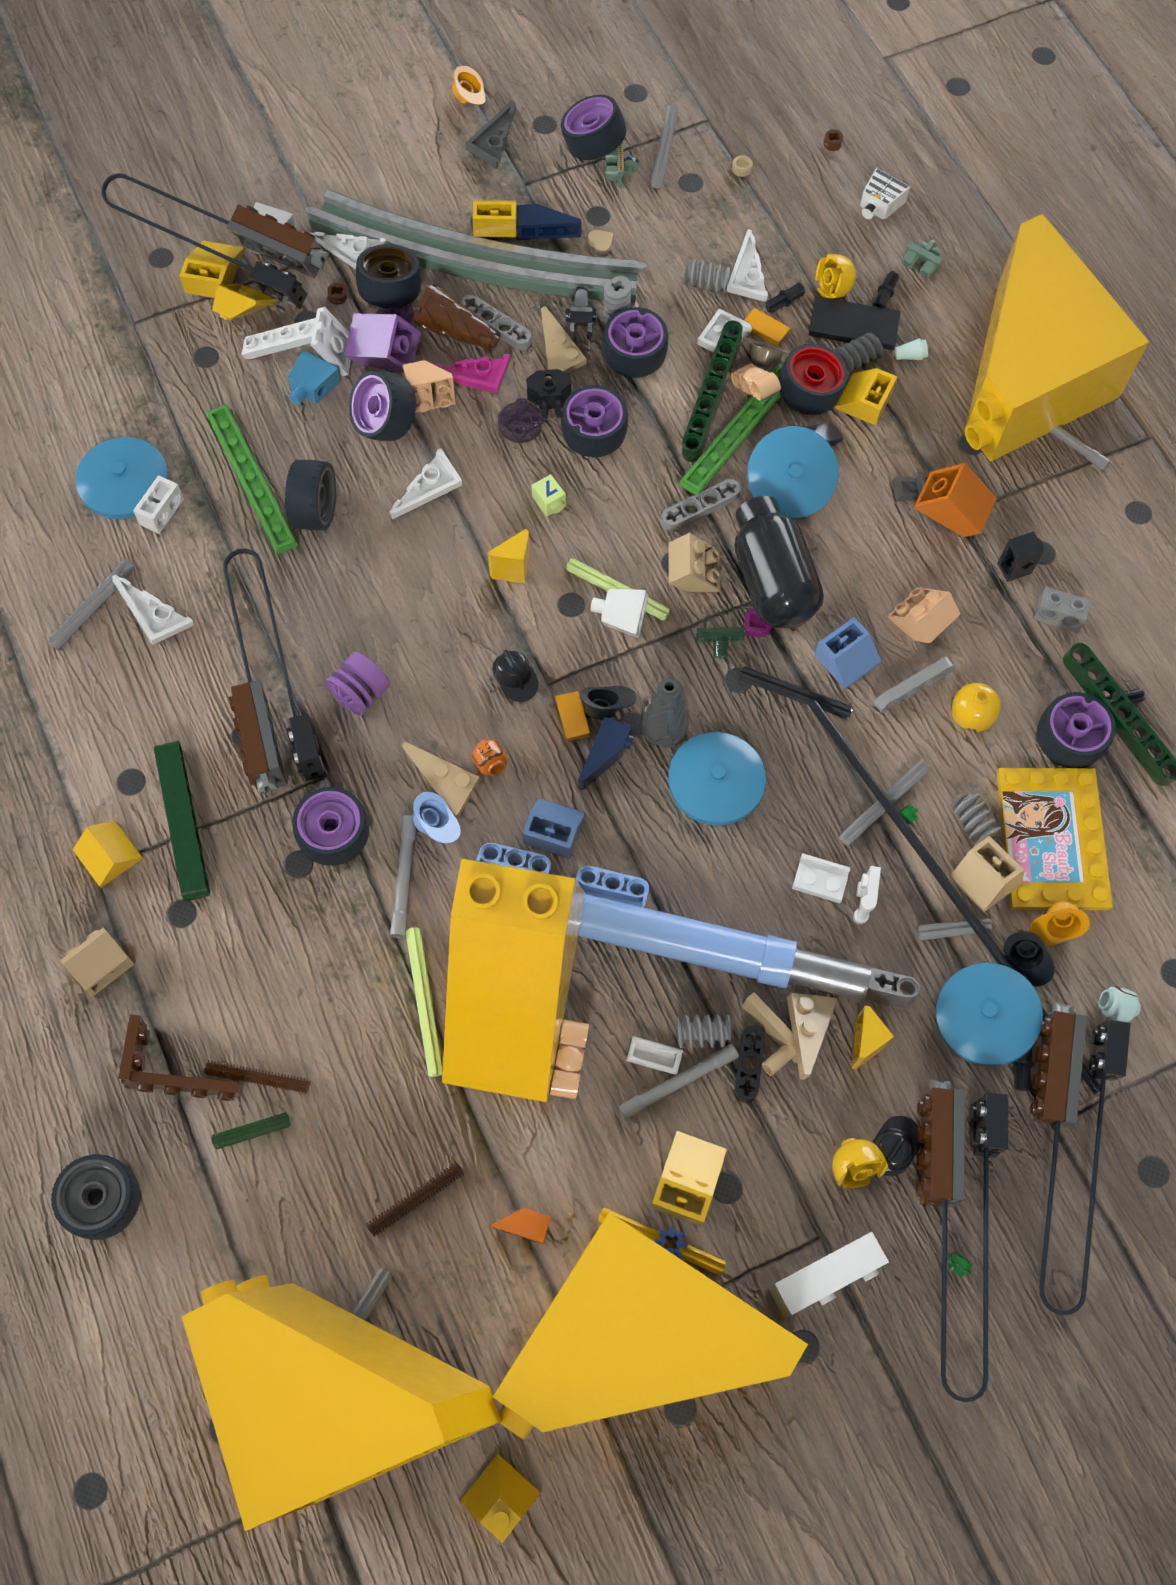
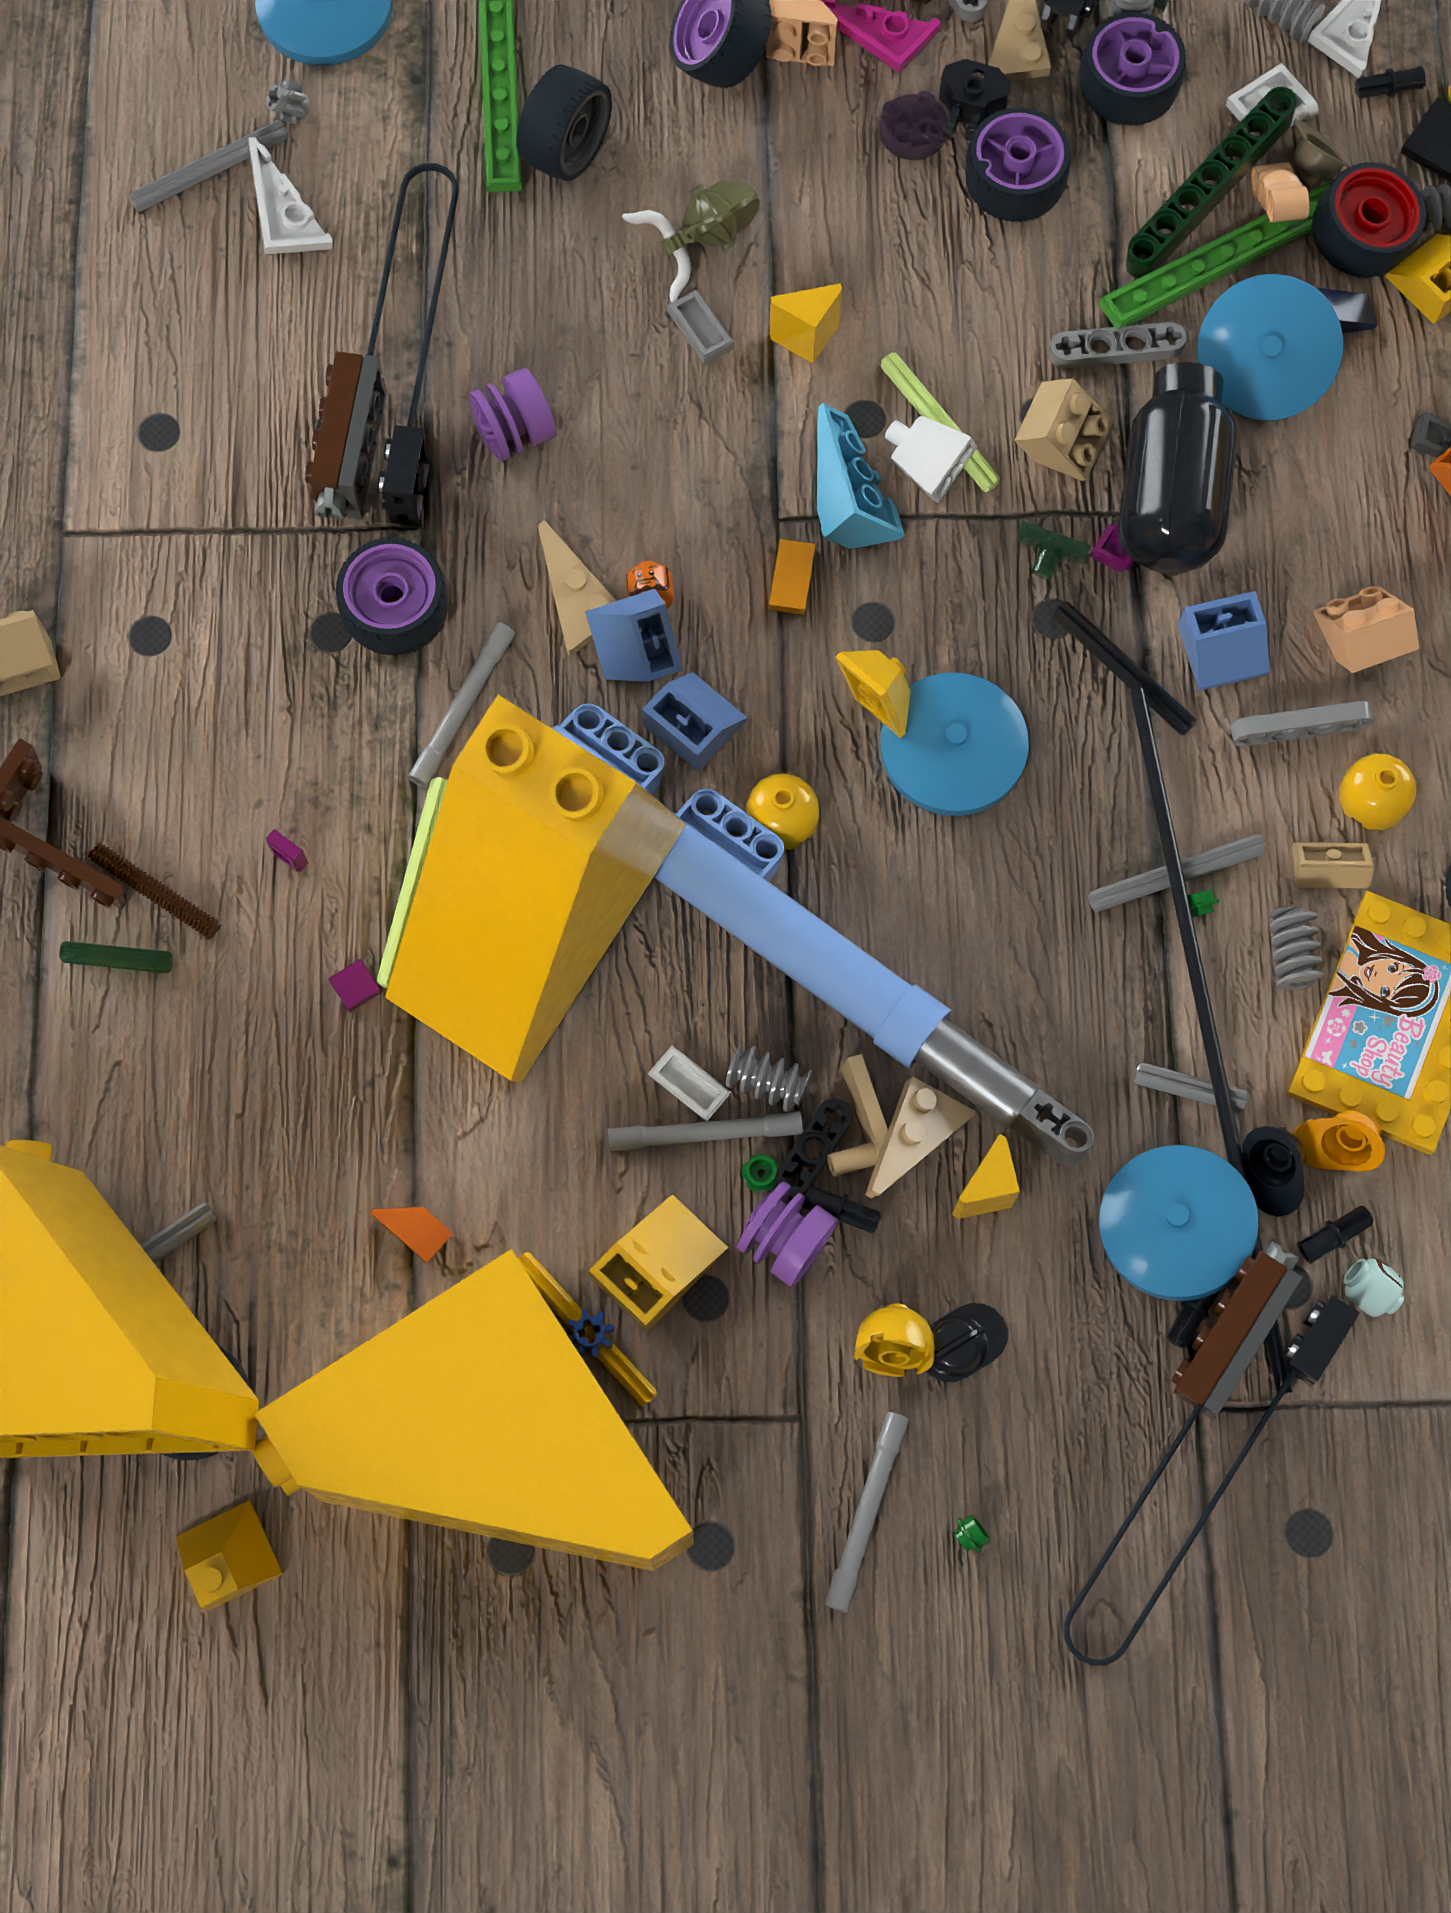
camera: 25 degrees right, 5 degrees up
(106, 852) = (86, 513): yellow slope -> none
(126, 545) = (287, 101): none -> light grey gear
(158, 504) = (354, 59): white brick -> none
(181, 821) = (200, 511): dark green beam -> none
(333, 1015) = (286, 851): none -> magenta tile
(415, 1083) = (354, 985): none -> magenta tile
(420, 1195) = (287, 1135): reddish brown axle -> none
(424, 519) = (710, 218): none -> olive helmet
(433, 482) = (754, 163): white wing -> none
(435, 818) = (537, 641): light blue piece -> none
(446, 587) = (700, 327): none -> light grey tile
(496, 791) = (634, 638): none -> medium blue slope
(515, 676) = (739, 489): black piece -> none
(549, 495) = (902, 249): yellowish green brick -> none
(569, 1059) = (570, 1039): light nougat piece -> none
(584, 655) = (847, 488): none -> medium azure wedge
(606, 701) = (845, 574): black piece -> none
(607, 749) = (814, 642): dark blue slope -> none
(634, 858) = (785, 807): none -> yellow cylinder
(658, 762) = (878, 686): none -> yellow slope
(665, 715) = (918, 625): dark grey cone -> none
(726, 1086) = (757, 1163): none -> green plate
(762, 1125) = (787, 1234): none -> medium lavender wheel
(767, 327) = (1342, 117): light orange tile -> none
(785, 1094) = (843, 1209): none -> black axle
(821, 878) = (1034, 940): white plate -> none
(828, 1275) = (783, 1467): white brick -> none
(868, 894) = (1083, 988): white plate -> none
(896, 1327) = (845, 1575): none -> light grey piece
(942, 1175) = (1003, 1404): piece -> none
(971, 761) = (1332, 865): none -> tan slope
(987, 874) = (1272, 1030): tan slope -> none
(1081, 982) = (1335, 1234): none -> black axle

